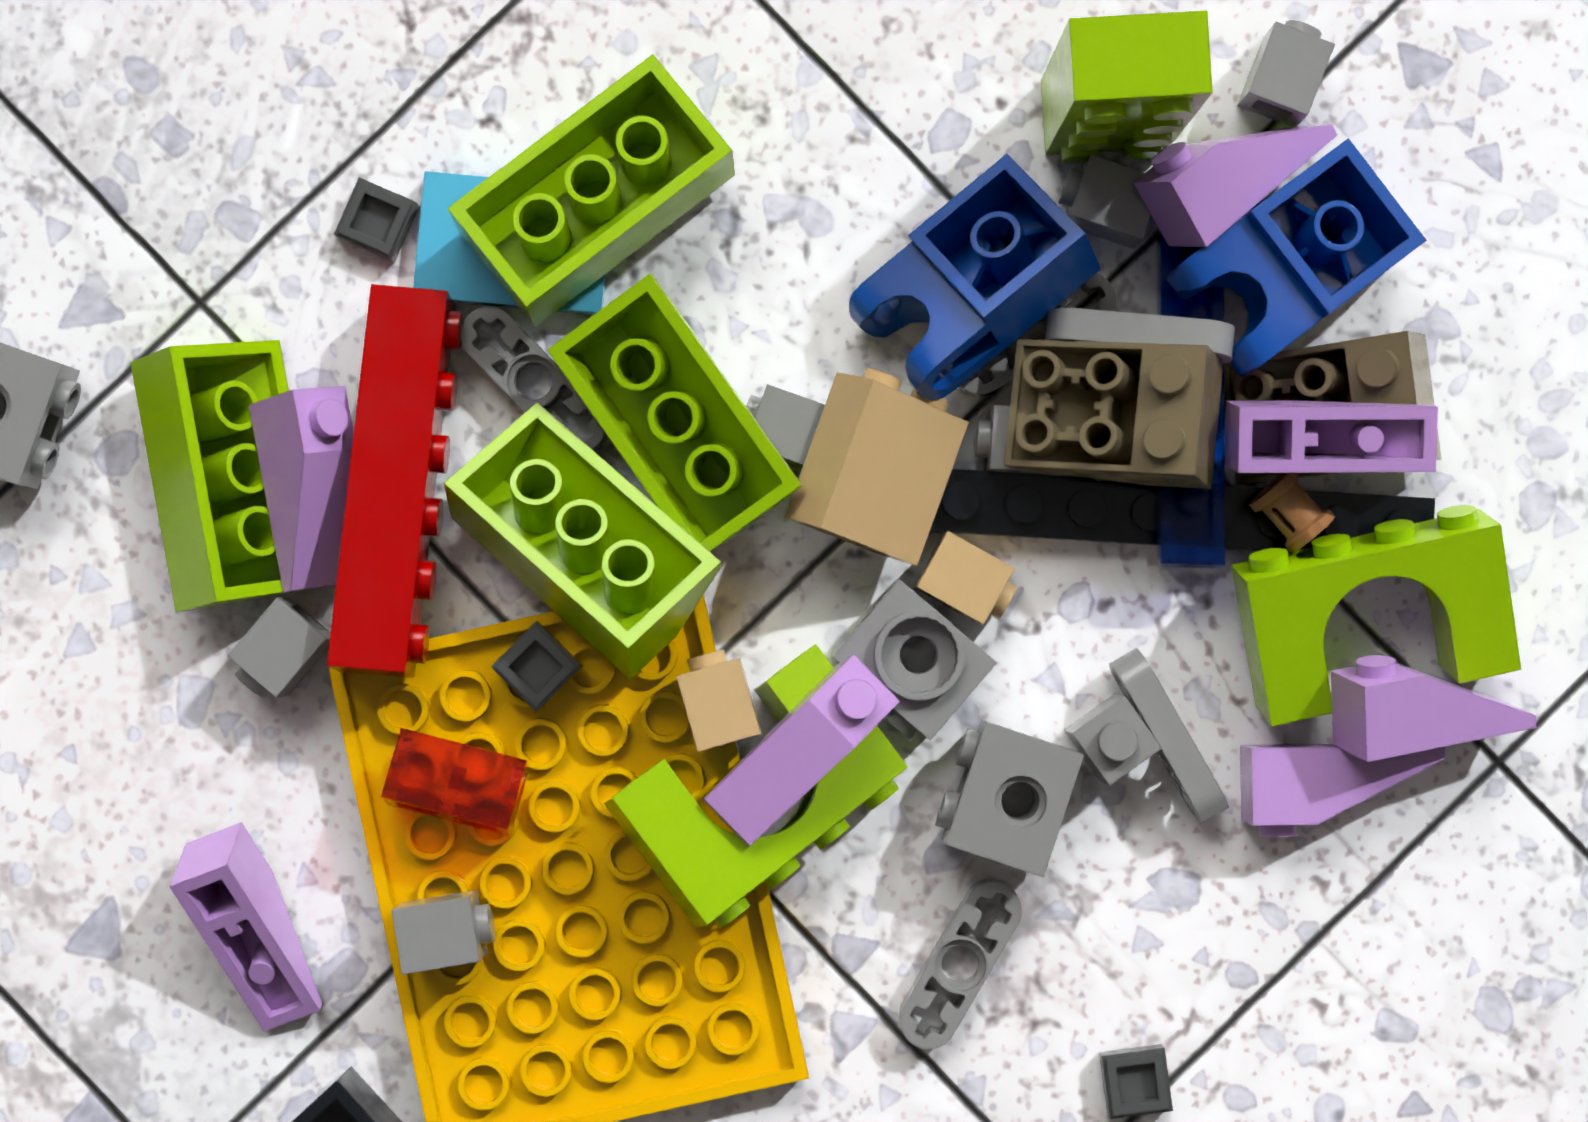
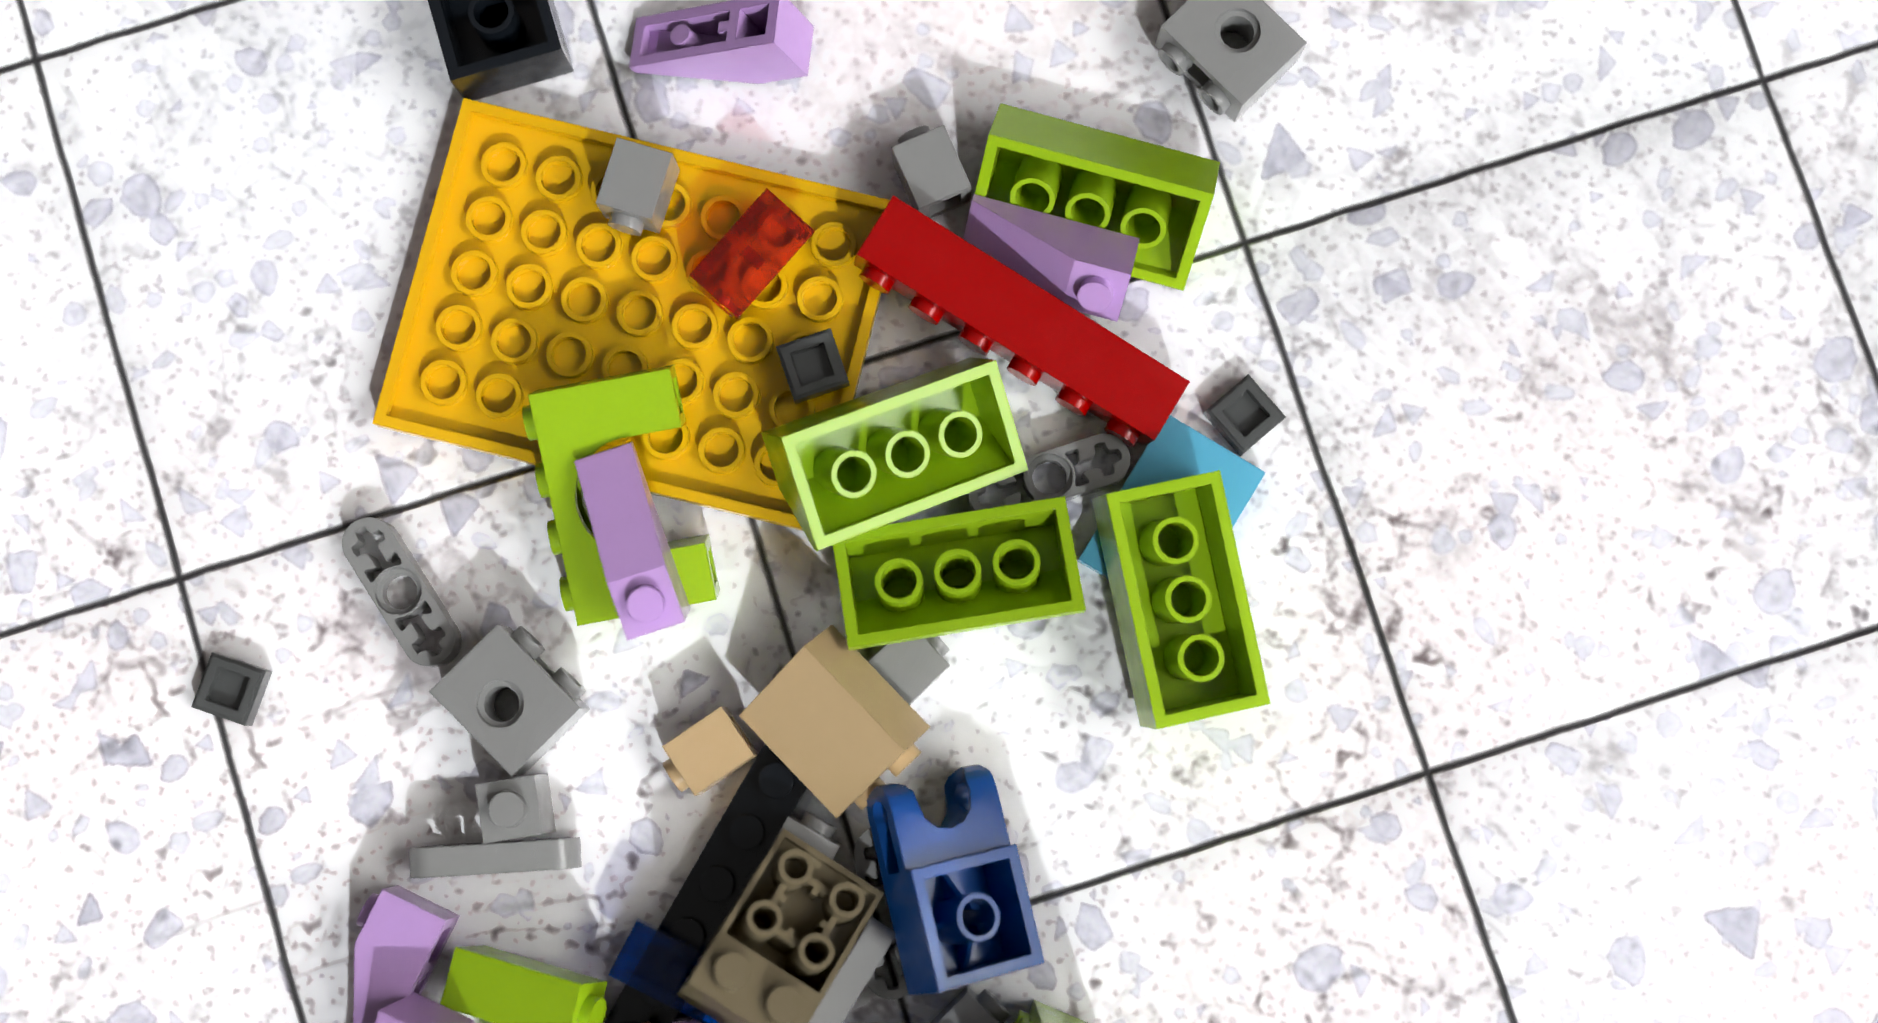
camera: 120 degrees right, 5 degrees down
(718, 700) = (708, 496): tan brick -> none
(924, 697) = (630, 668): light grey brick -> none

